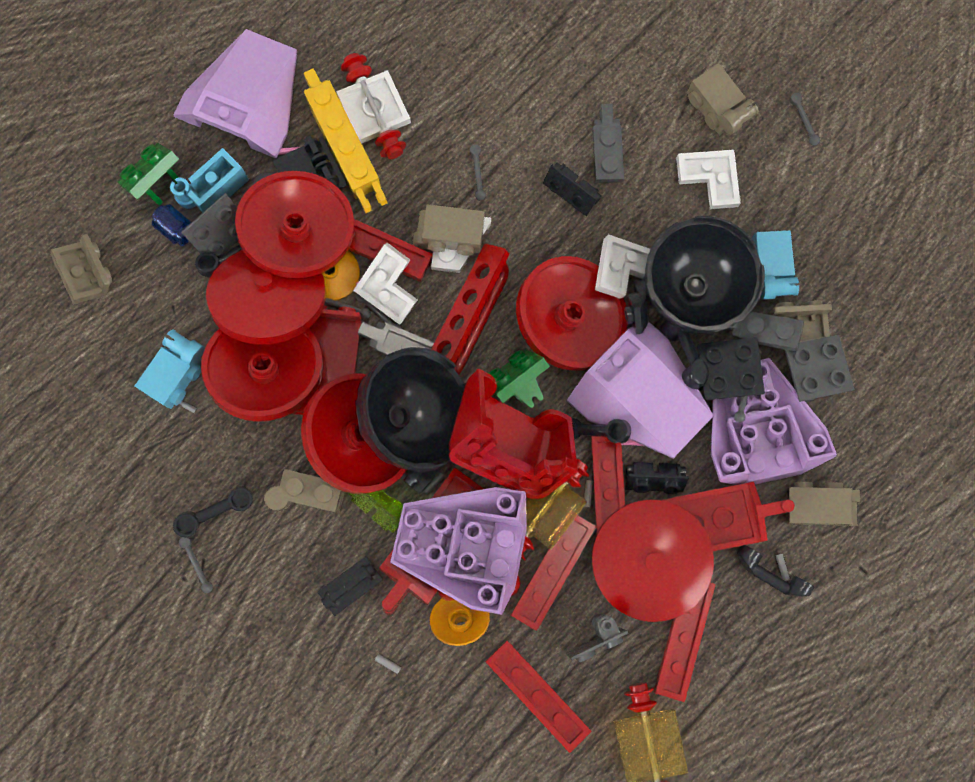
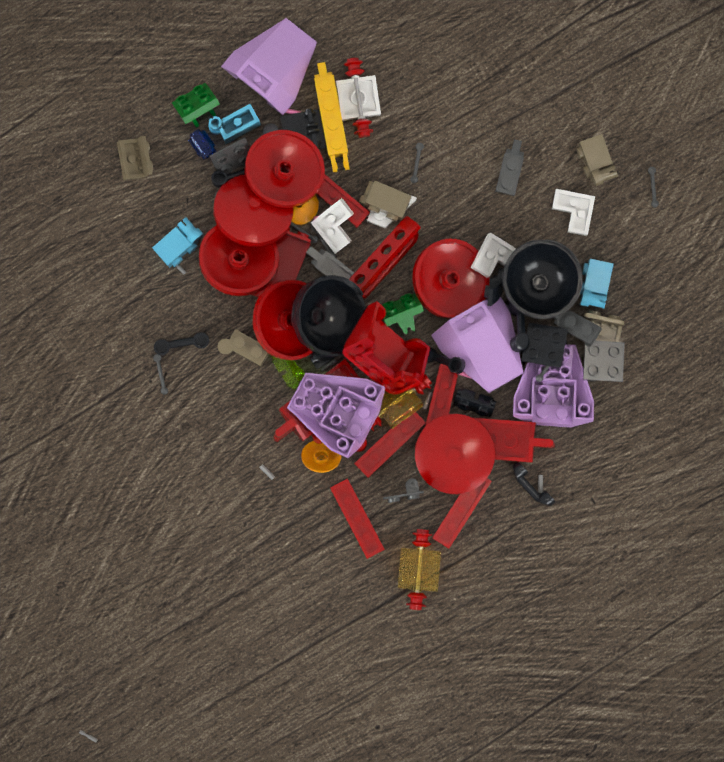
camera: 20 degrees right, 5 degrees up
(349, 586) = (256, 416): black hinge -> none
(562, 182) = (471, 185): black hinge -> none
(823, 505) = (577, 451): dark tan hinge -> none

